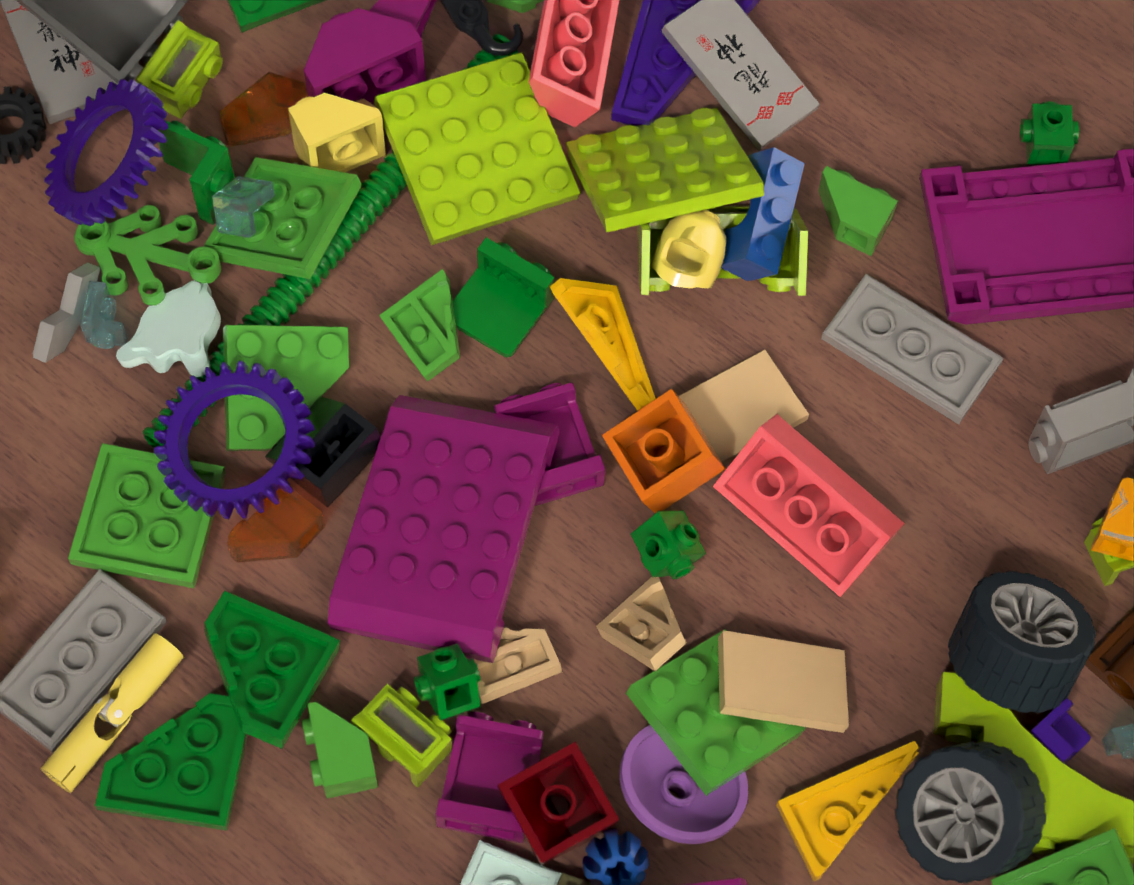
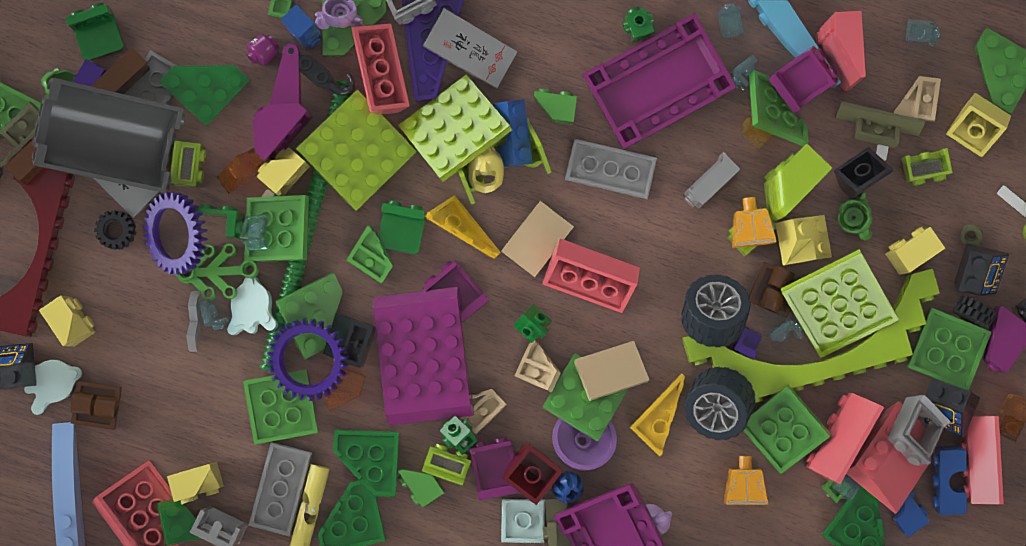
camera: 20 degrees left, 20 degrees up
(663, 452) = (513, 279): orange brick -> none

